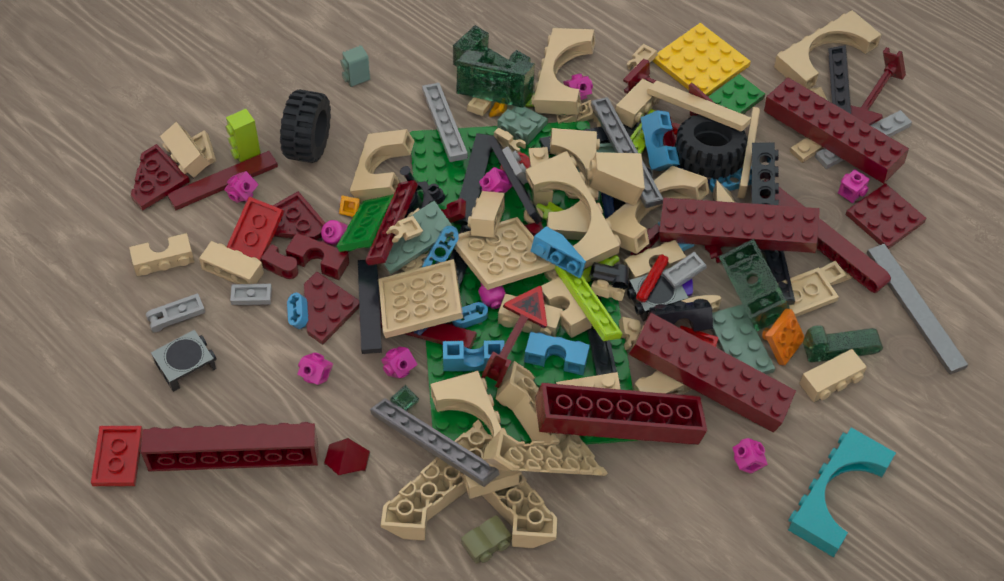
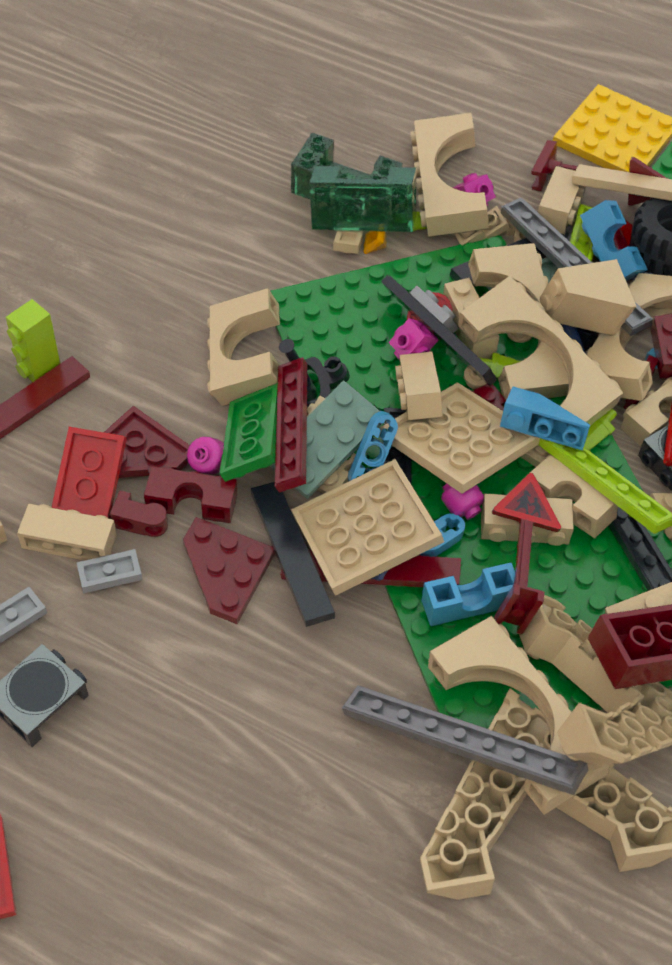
camera: 15 degrees left, 0 degrees up
(230, 447) = (151, 817): dark red brick -> none
(241, 187) = (48, 415): dark pink brick -> none
(297, 307) = (182, 584): dark azure beam -> none
(305, 126) = (121, 309): black tyre -> none
(314, 368) = (241, 663): dark pink brick -> none
(346, 457) = (330, 791): dark red slope -> none
(349, 205) = (213, 412): light orange slope -> none
(355, 66) = (162, 216): sand green brick -> none
(398, 362) = (362, 627): dark pink brick -> none
(404, 398) = (389, 680): clear green brick -> none
(406, 228) = (319, 429): tan plate -> none
(444, 122) = (311, 271): light grey plate -> none
(455, 210) = (373, 387): dark red plate -> none
(475, 172) = (376, 343): black tile -> none
(486, 540) = (582, 872): olive brick -> none
(506, 139) = (407, 278): tan plate -> none
(522, 123) = (416, 254): sand green plate -> none
(542, 346) = (606, 560): dark azure arch -> none
(605, 290) = (620, 461): tan plate -> none
(615, 275) = (622, 437): black piece -> none
(643, 52) = (539, 137): tan plate -> none

